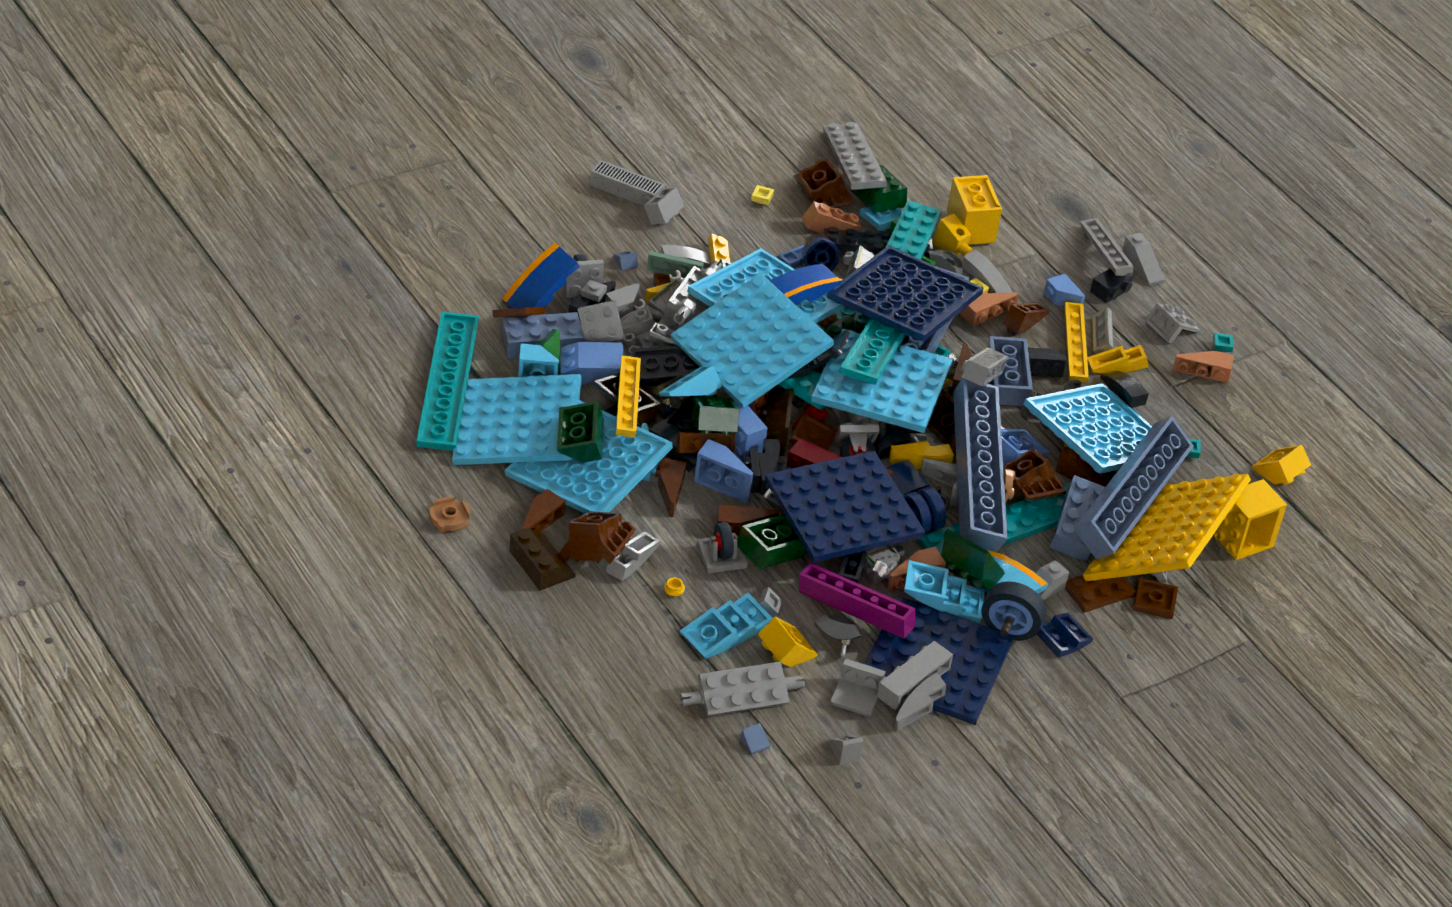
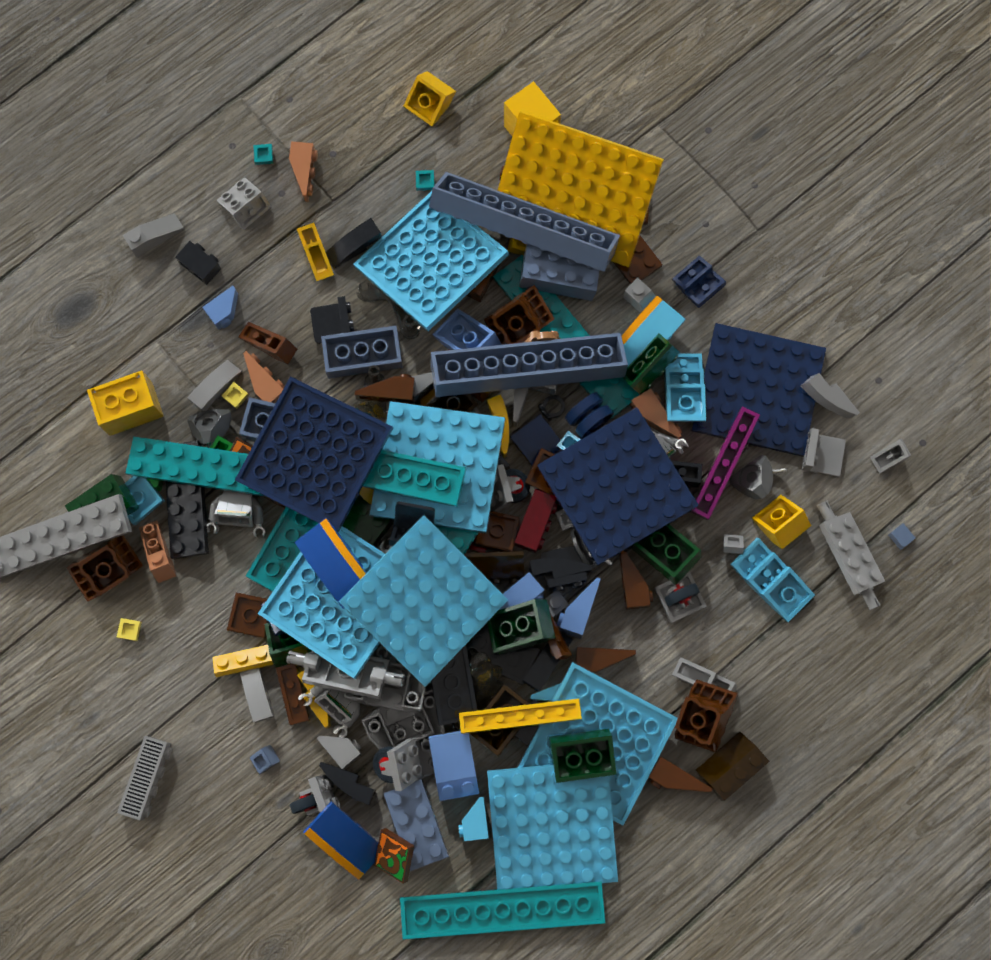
camera: 90 degrees left, 35 degrees up
(445, 522) = (706, 868): medium nougat plate -> none
(552, 344) = (446, 813): green slope -> none
(594, 290) = (344, 781): light grey plate -> none
(664, 206) = (178, 731): light grey brick -> none
(669, 264) = (282, 702): sand green plate -> none
(674, 587) = (734, 635): yellow plate -> none
(699, 382) = (493, 652): medium azure slope -> none
(792, 257) = (222, 585): medium blue tile -> none
(821, 251) = (221, 556): dark blue cylinder -> none
(905, 678) = (803, 403): light grey brick -> none
(952, 236) = (166, 422): yellow torso -> none
(984, 366) = (407, 367): light grey brick -> none
(1014, 610) = (707, 321): wheel -> none
(1076, 341) = (294, 292): yellow plate -> none
(1102, 331) = (274, 268): light grey plate -> none
(1107, 247) = (150, 268): light grey plate -> none

